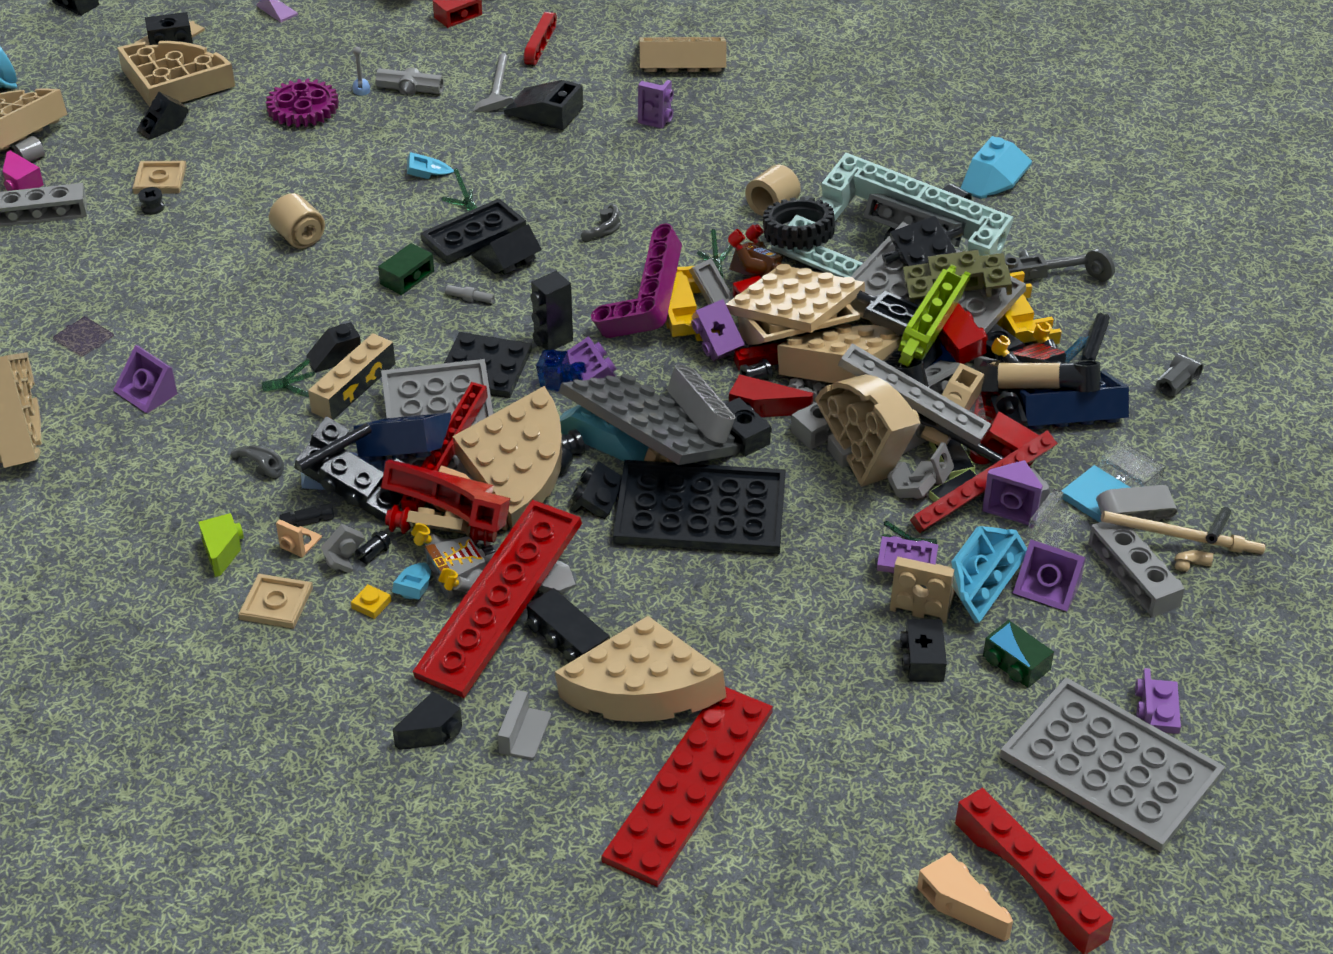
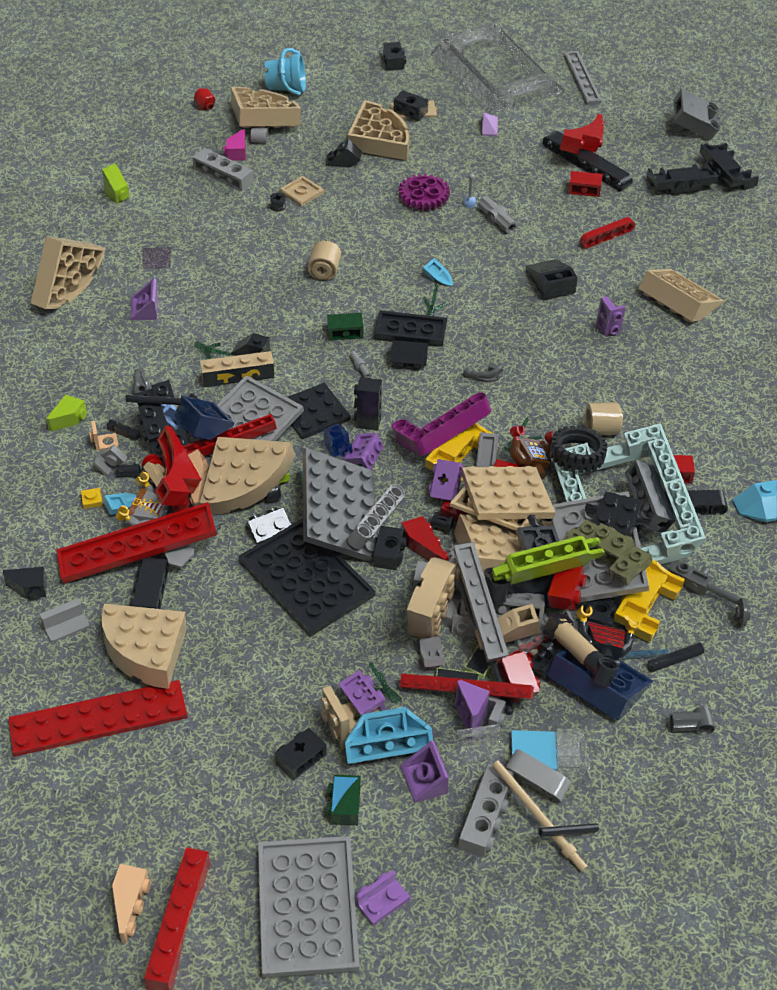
camera: 45 degrees right, 5 degrees up
(276, 601) = (54, 463): tan tile -> none
(495, 100) = (529, 257): light grey piece -> none
(573, 442) = (289, 487): black wheel -> none
(940, 470) = (456, 656): light grey bracket -> none
(1189, 557) = (530, 834): tan arm -> none

